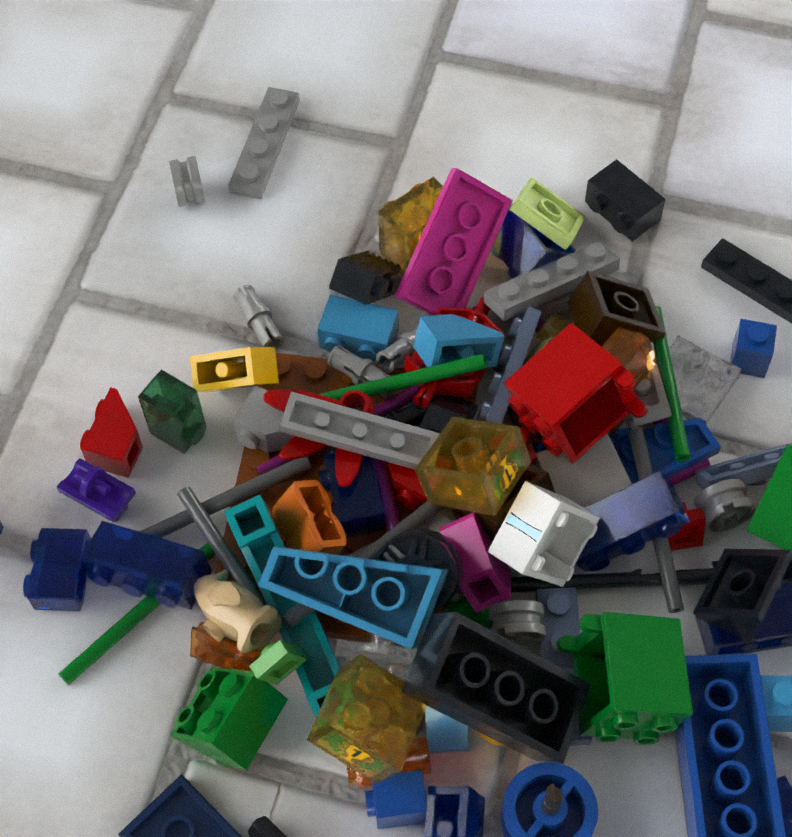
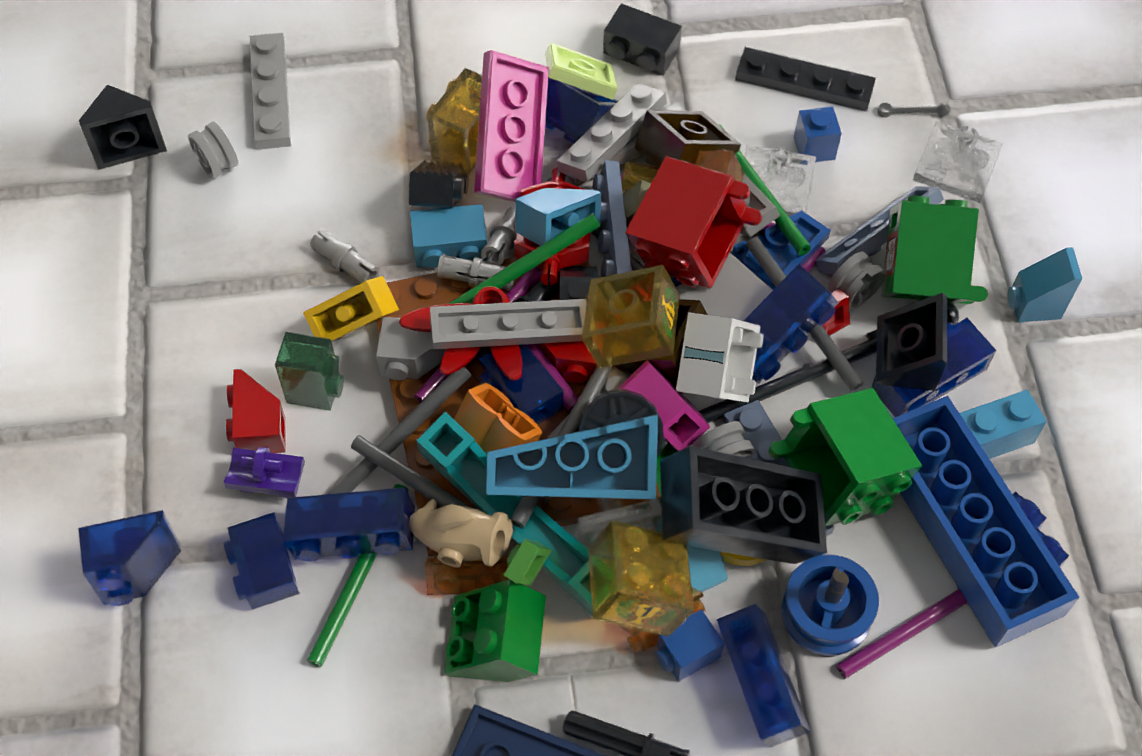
camera: 25 degrees left, 0 degrees up
(114, 137) = (121, 128): none -> black slope

